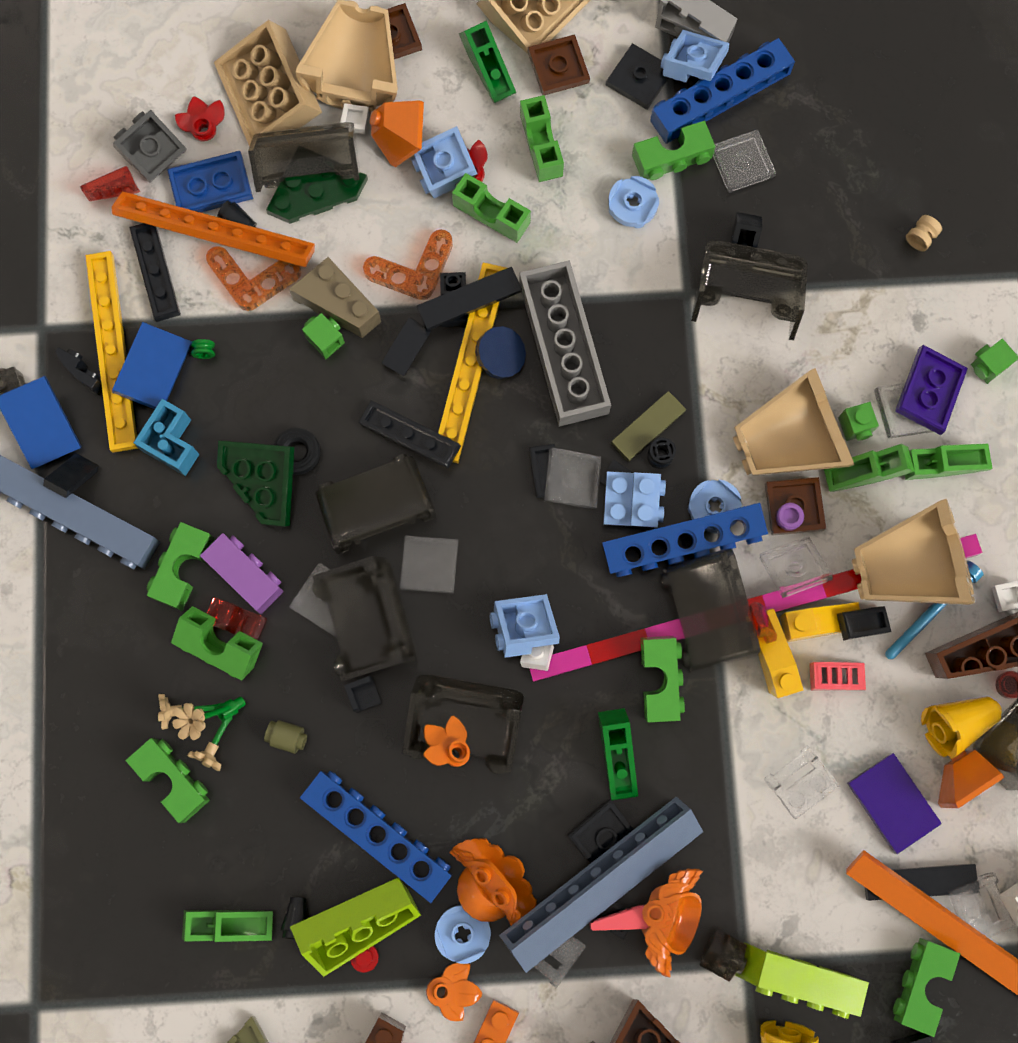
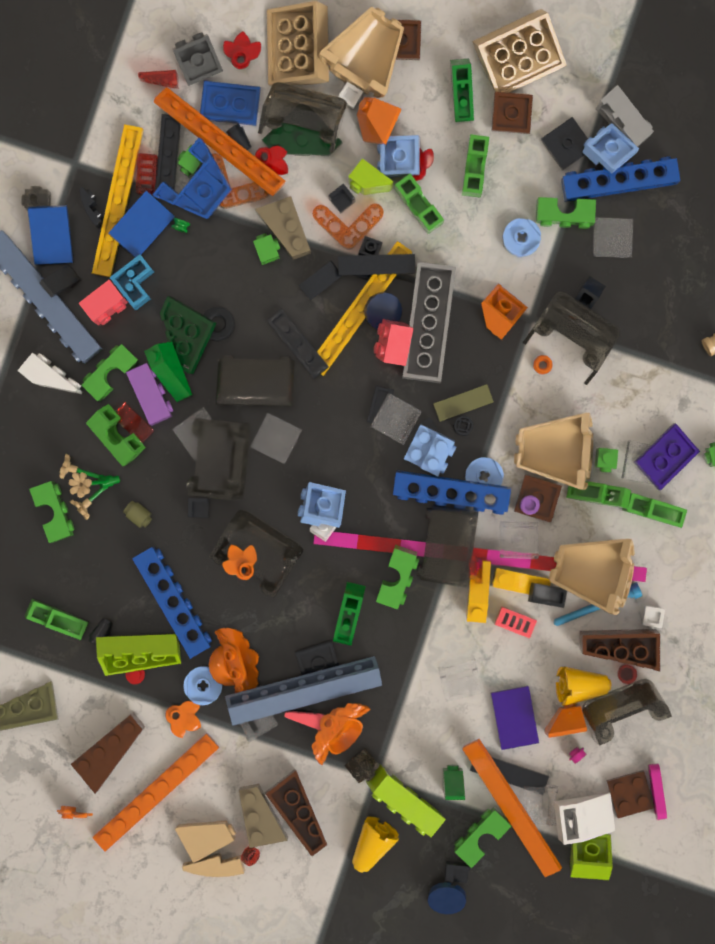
camera: 30 degrees right, 10 degrees up
(91, 602) = (40, 372): none -> white slope
(132, 288) = (147, 157): none -> clear red slope
(138, 479) = (103, 303): none -> coral brick
(188, 266) = (188, 163): none -> bright green brick
(215, 293) = (204, 190): none -> blue wing
(253, 530) = (167, 367): none -> green slope
(290, 224) = (275, 159): none -> red plate
(393, 239) = (341, 198): none -> black panel
(418, 201) = (368, 180): none -> lime slope
(530, 380) = (393, 342): none -> coral brick
(648, 296) = (501, 311): none -> orange slope
(729, 334) = (547, 360): none -> orange plate
(858, 927) = (453, 783): none -> green slope
(998, 819) = (577, 754): none -> dark pink plate

